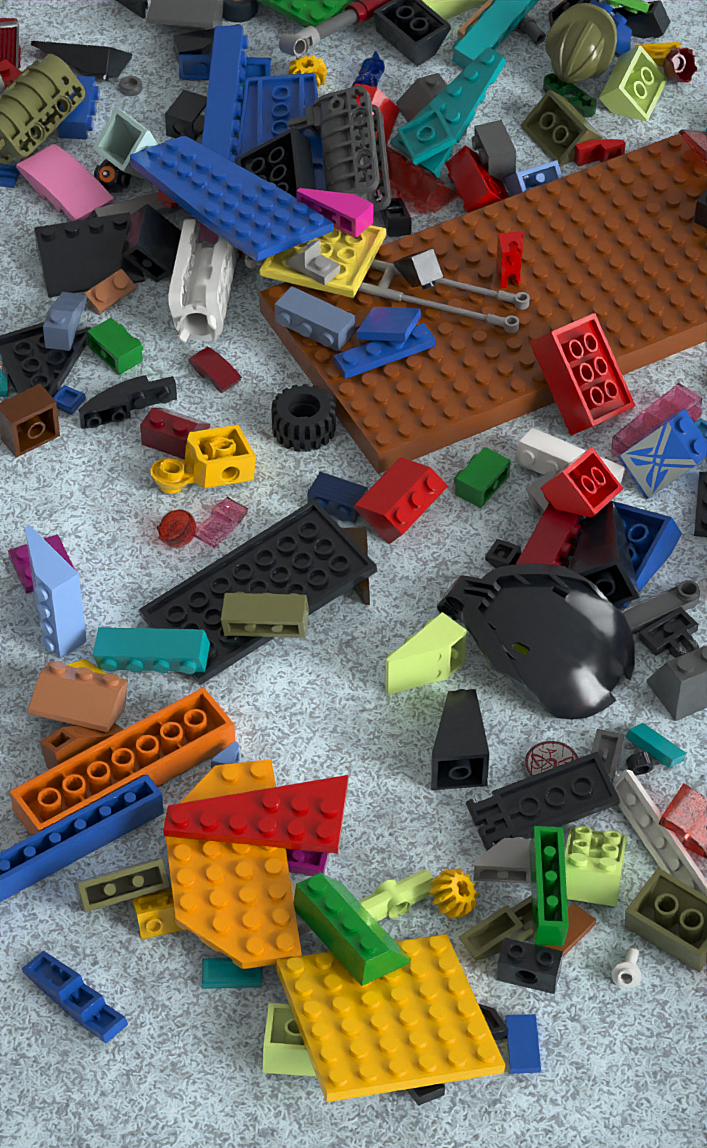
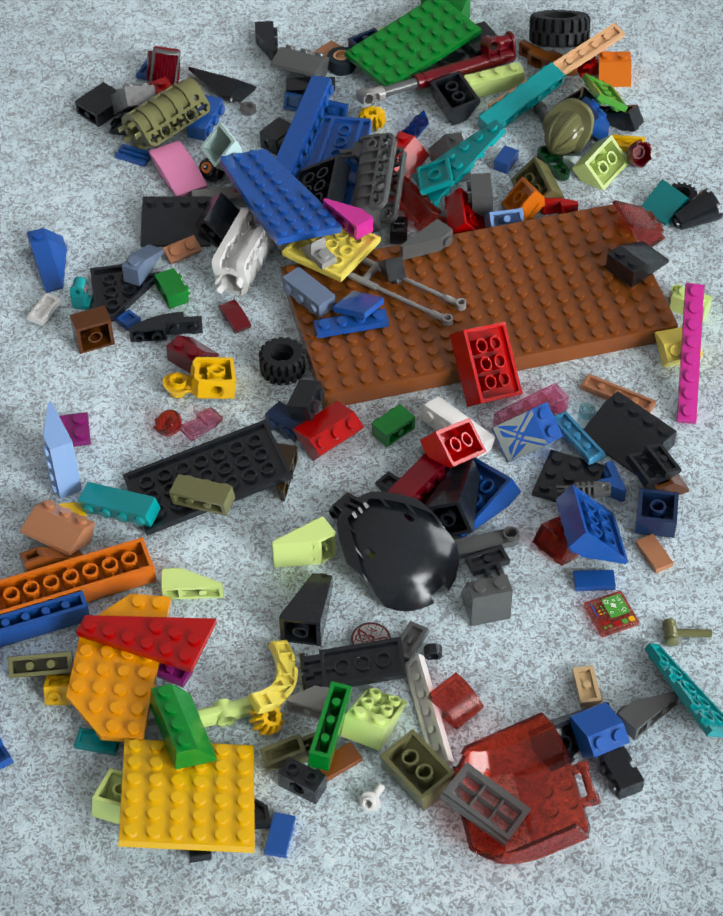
camera: 15 degrees right, 0 degrees up
(227, 756) = (147, 588): medium blue slope -> none
(284, 739) = (184, 584): none -> yellowish green slope
(361, 463) = (305, 400): none -> black brick
(451, 222) = (427, 241): none -> dark grey slope
(460, 837) = (284, 681): none -> light yellow tile
(506, 100) = (506, 159): none -> blue piece
(509, 257) = (459, 271): red hinge -> none
(552, 144) = (524, 196): none -> orange slope
(592, 87) = (571, 159): none -> light aqua slope
(656, 745) = (449, 640): teal tile -> none

